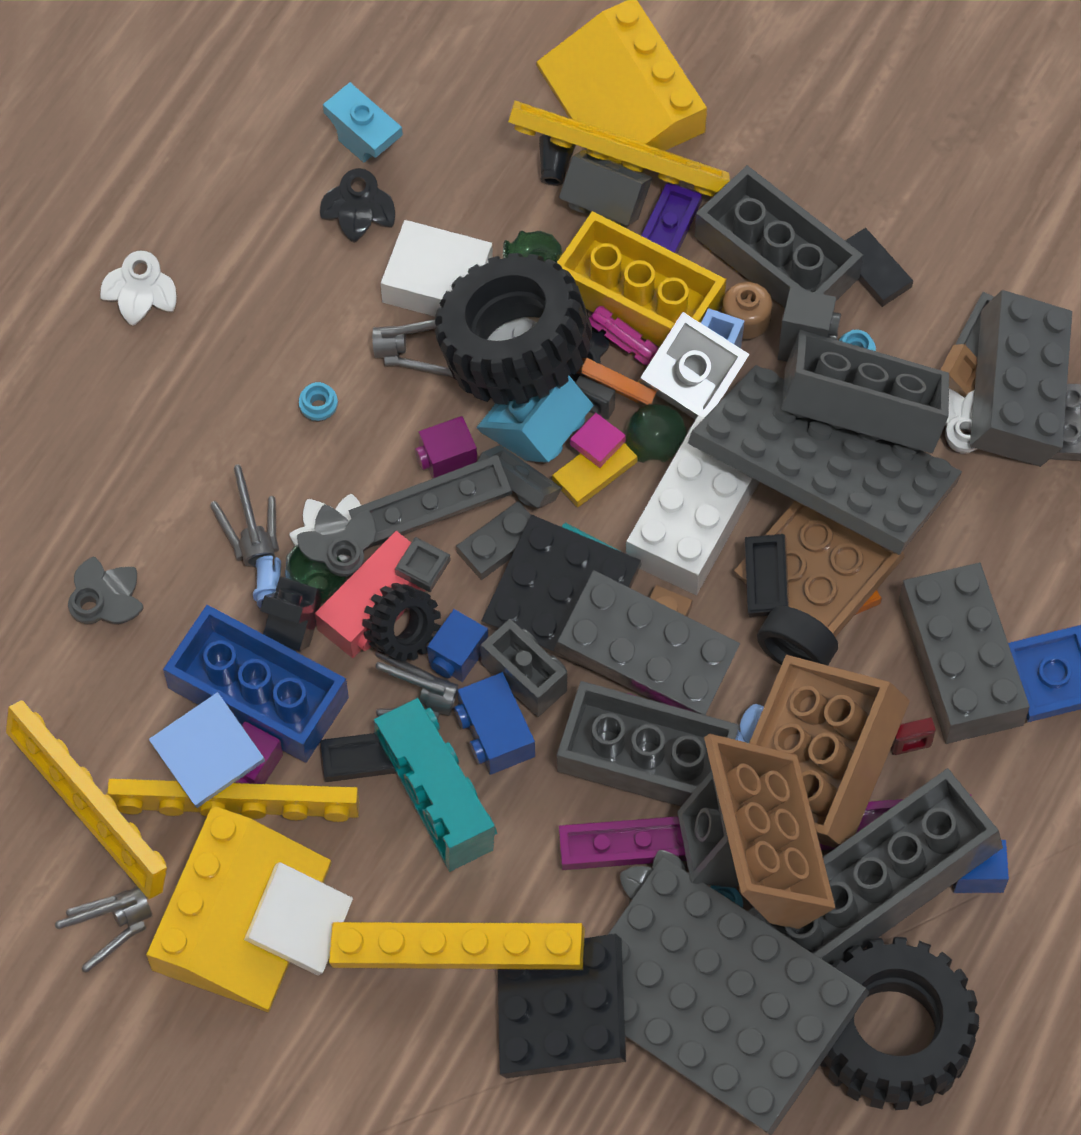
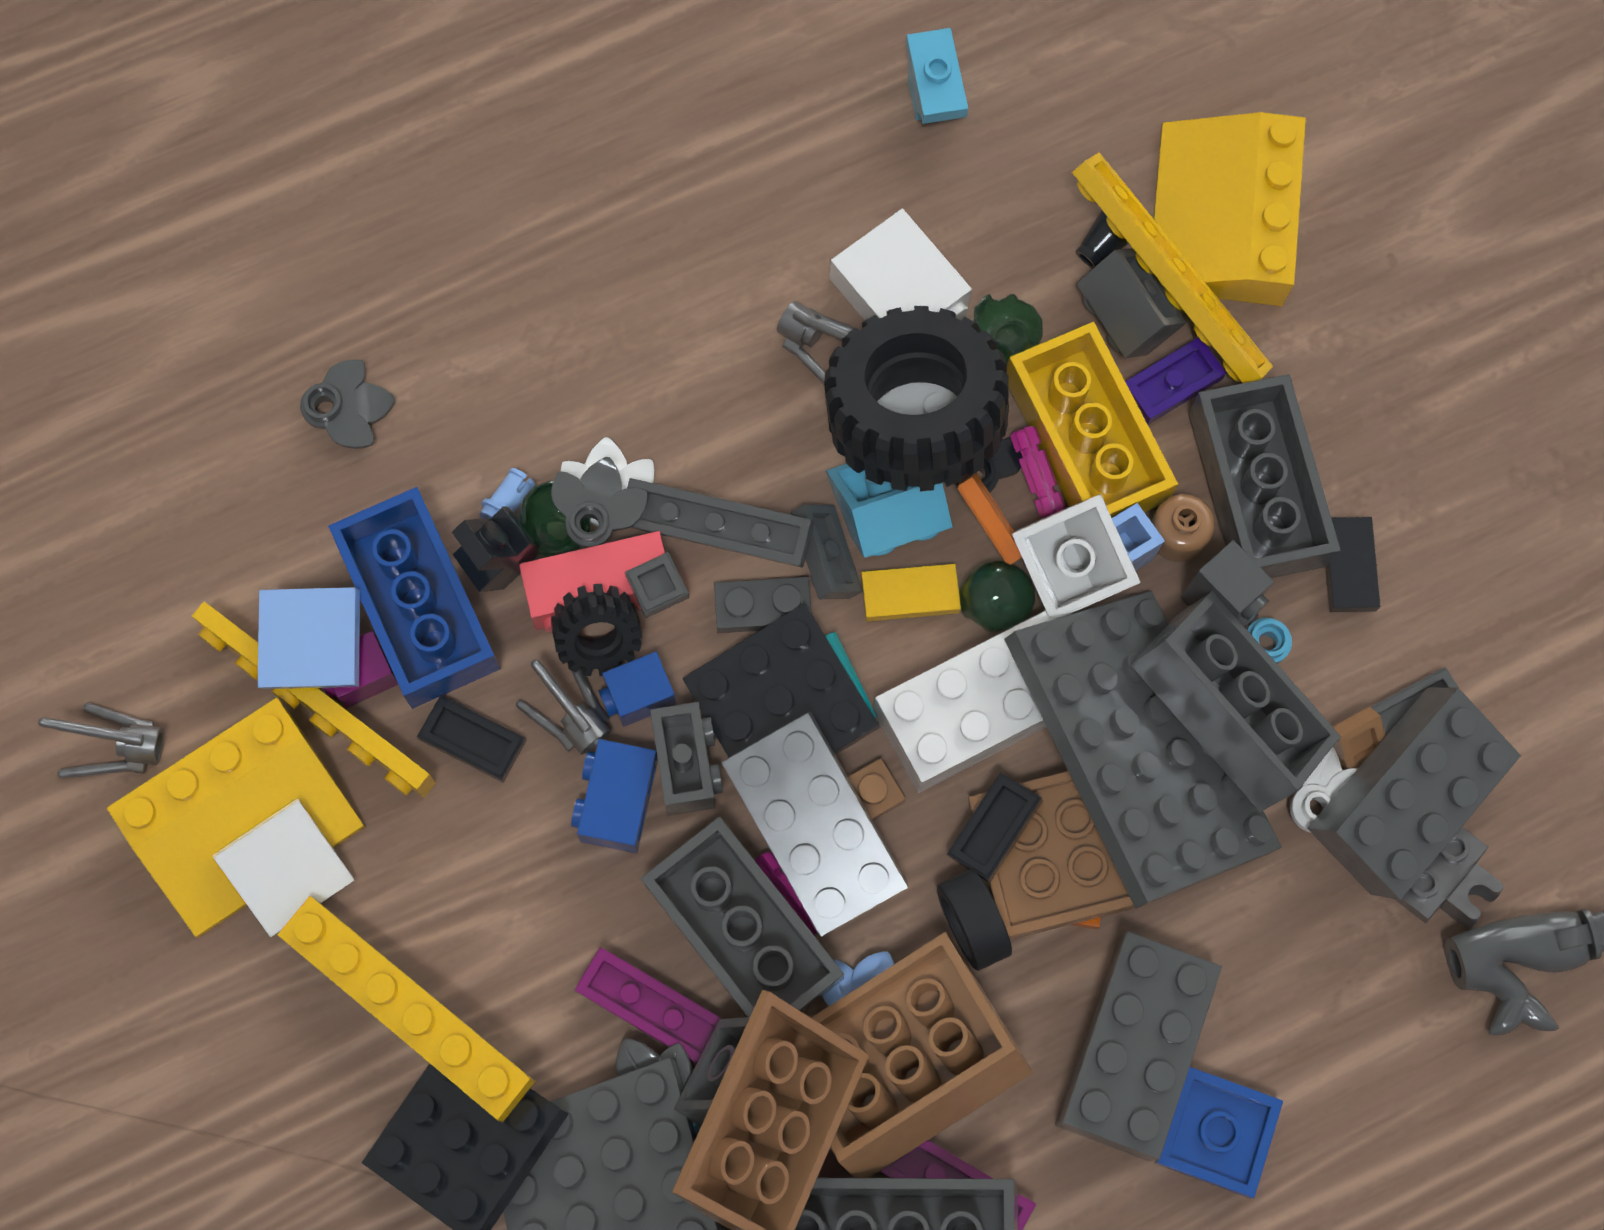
camera: 30 degrees right, 10 degrees up
(86, 800) = (172, 626): yellow plate -> none
(139, 292) = (598, 116): white plate -> none
(254, 540) = (523, 448): flat silver plant -> none
(315, 392) = (689, 330): medium azure plate -> none
(355, 208) = (873, 167): black plate -> none
(436, 784) = (510, 820): teal wedge -> none
(446, 447) = (775, 475): magenta brick -> none
(597, 440) = (931, 566): dark pink tile -> none
(601, 396) = (964, 522): dark grey tile -> none
(914, 736) = (1024, 1100): dark red tile -> none

